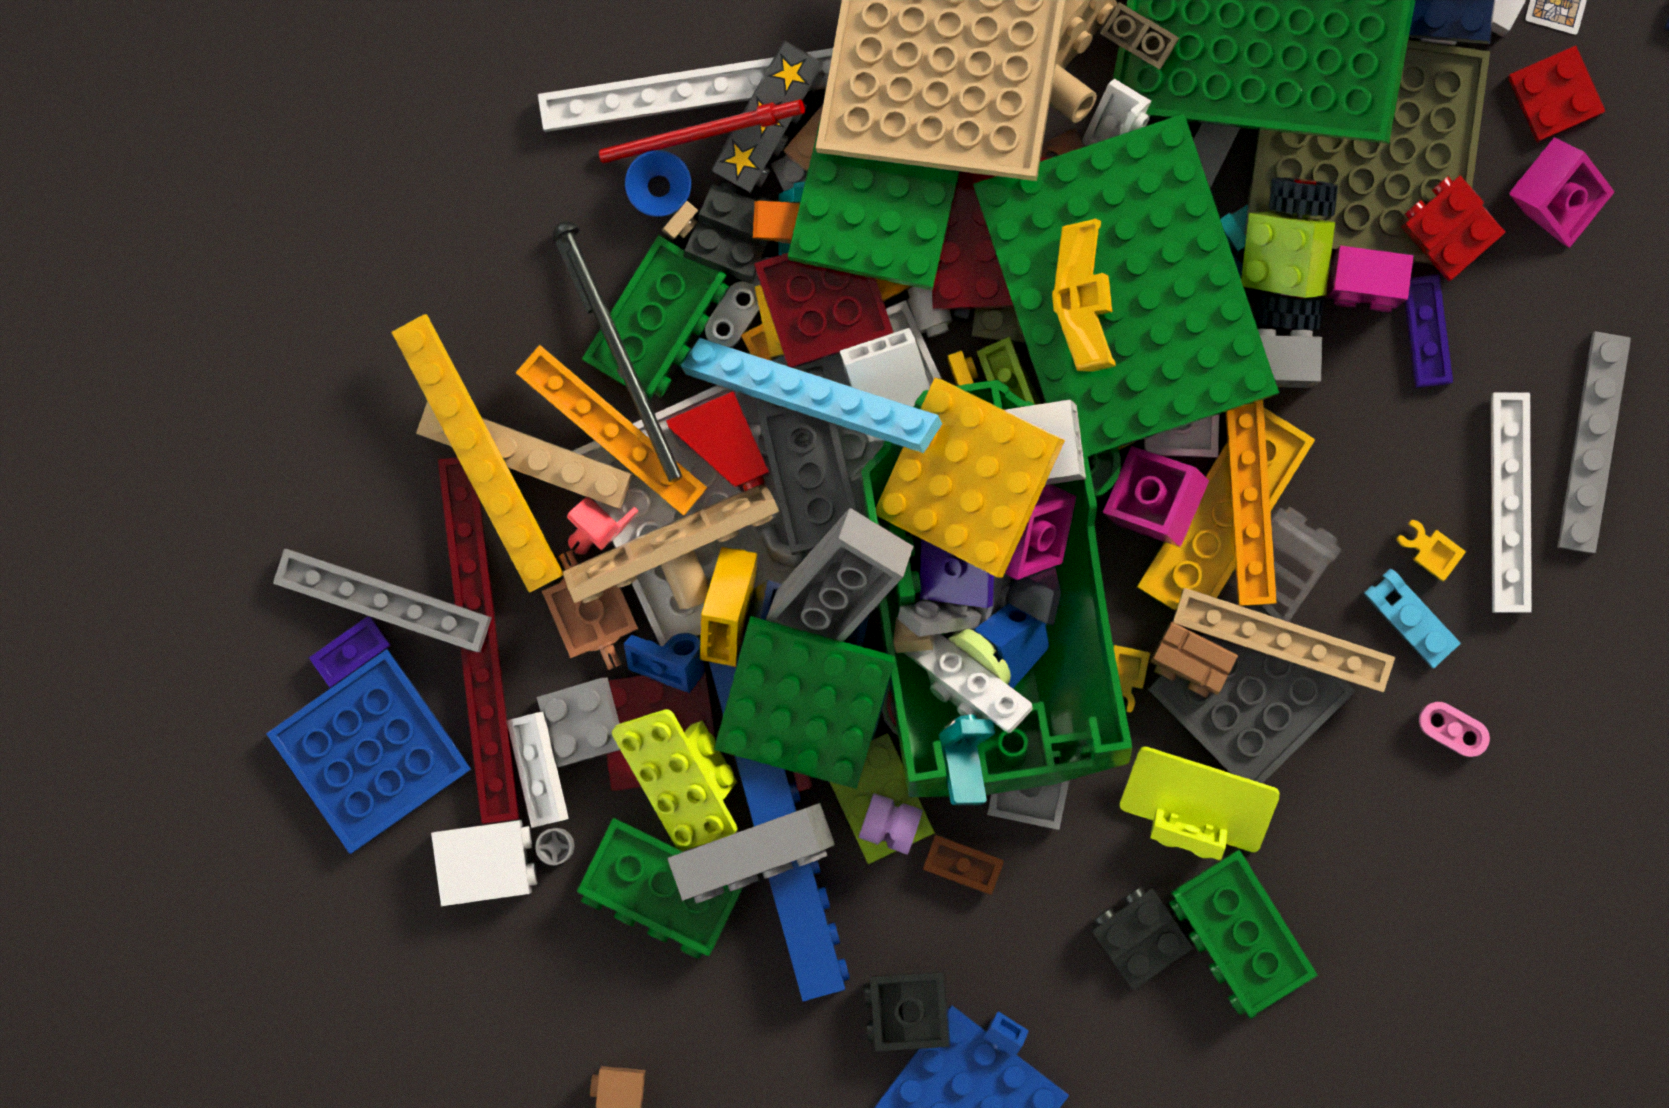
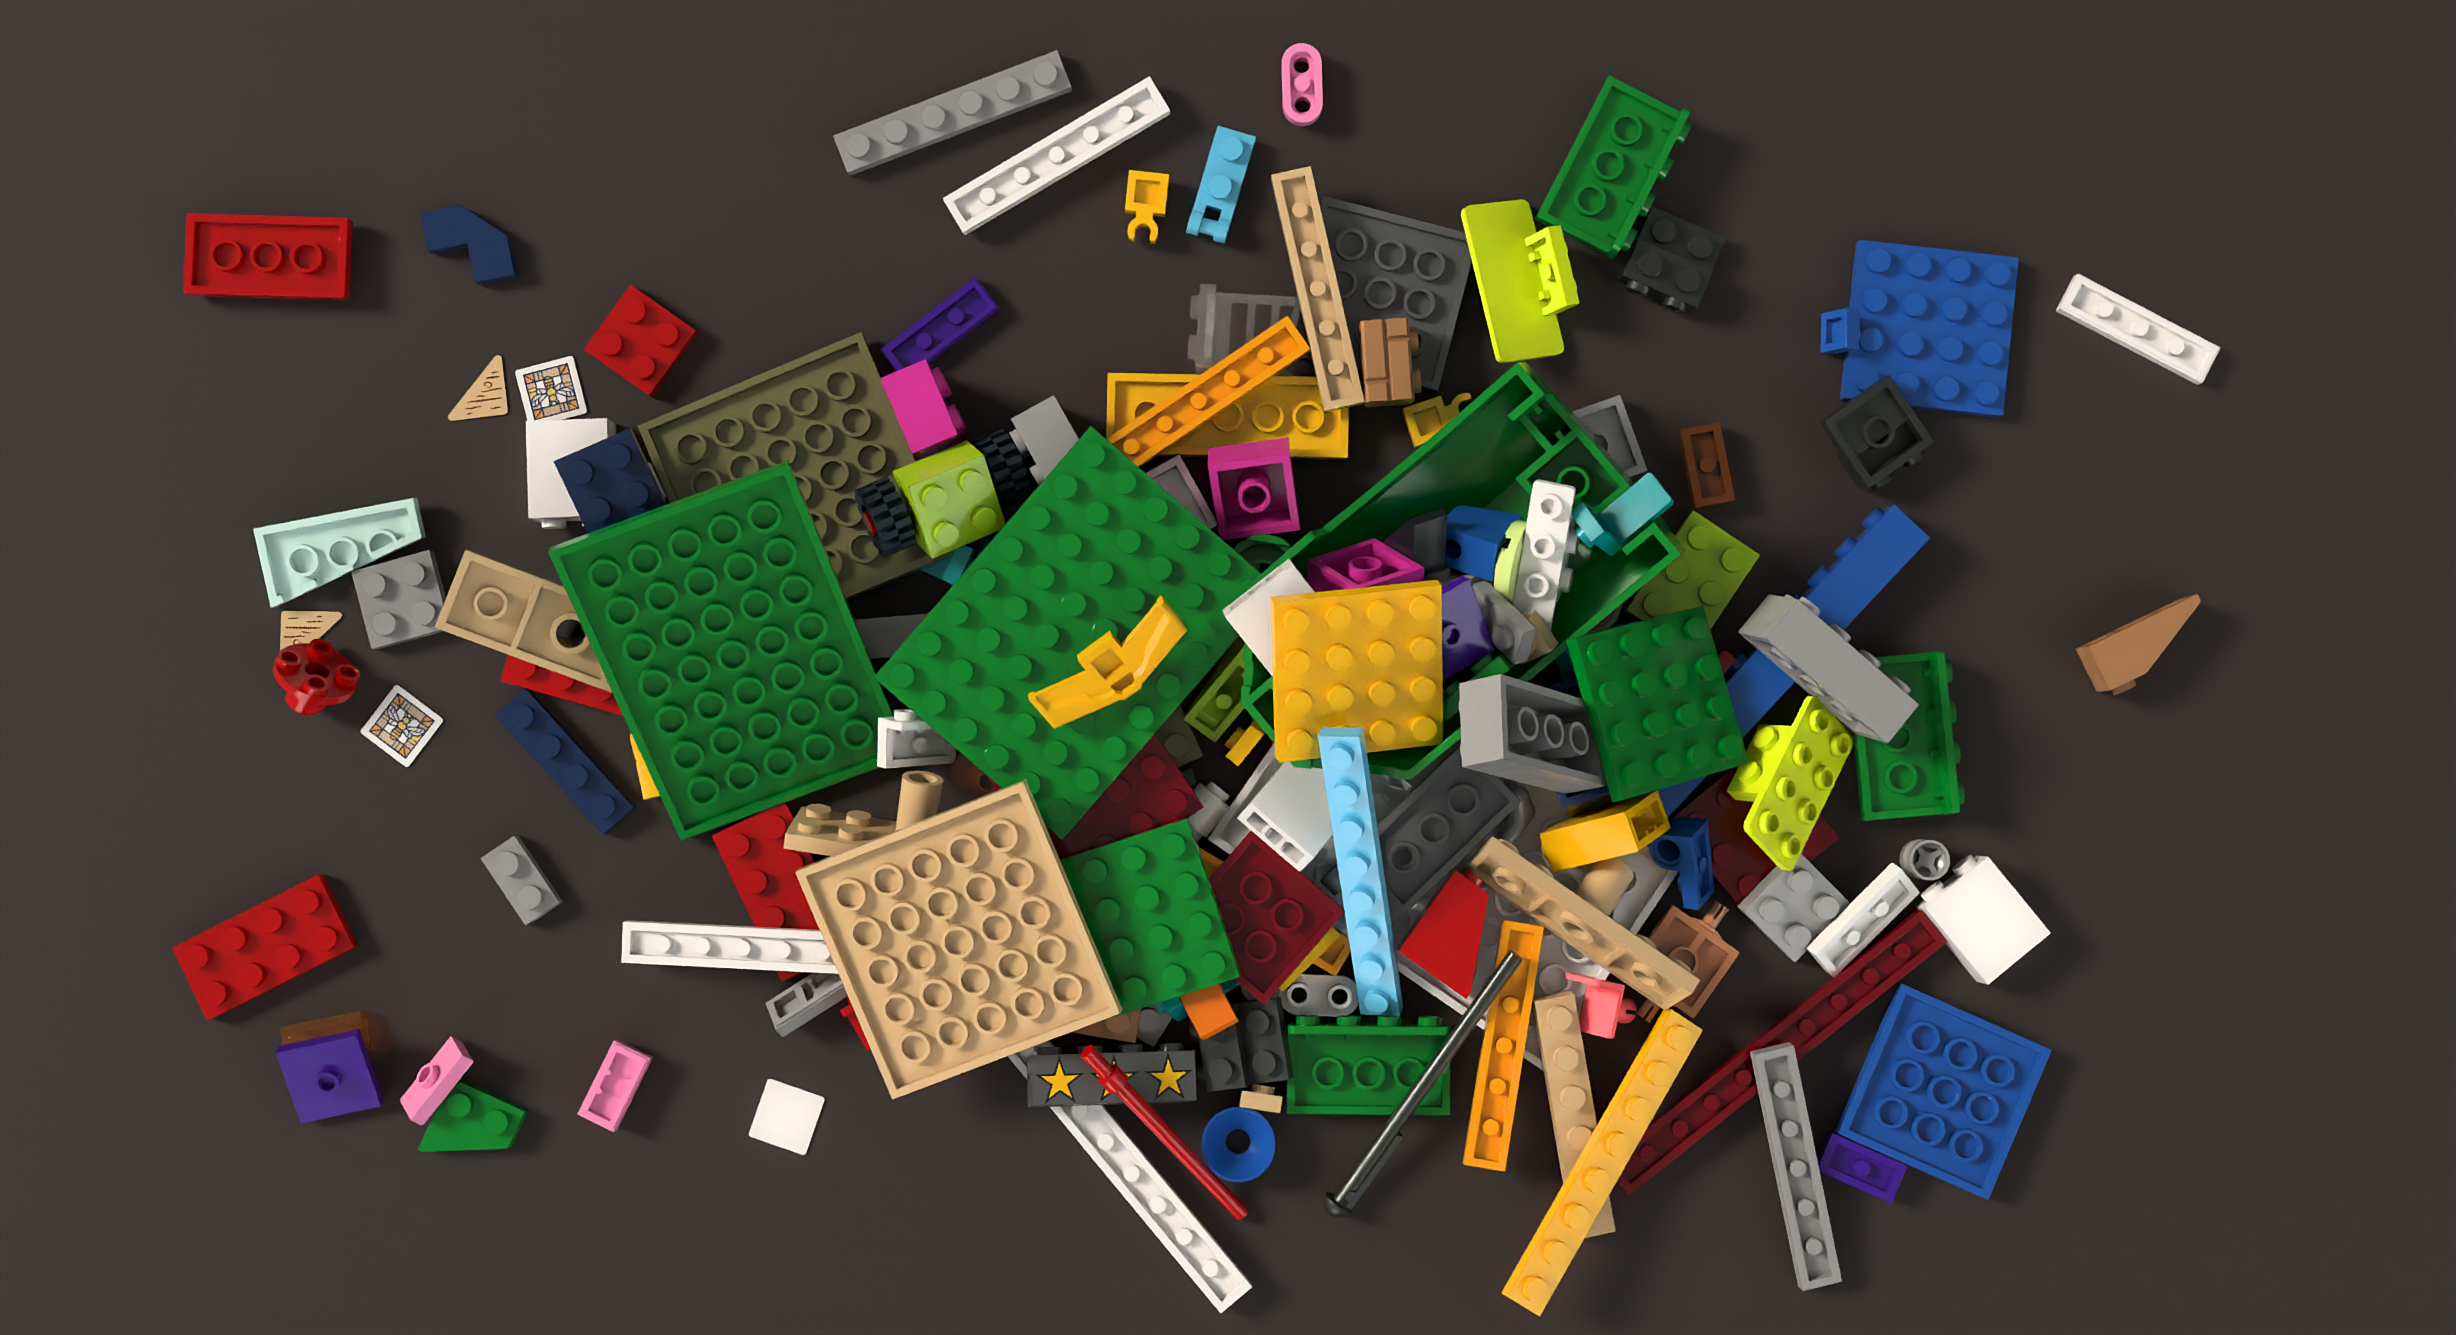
camera: 125 degrees left, 0 degrees up
(890, 823) = (1715, 554): lavender wheel -> none
(1139, 36) = (821, 766): dark tan slope -> none
(1452, 226) = (828, 362): red plate -> none
(1562, 191) = (731, 280): dark pink slope -> none

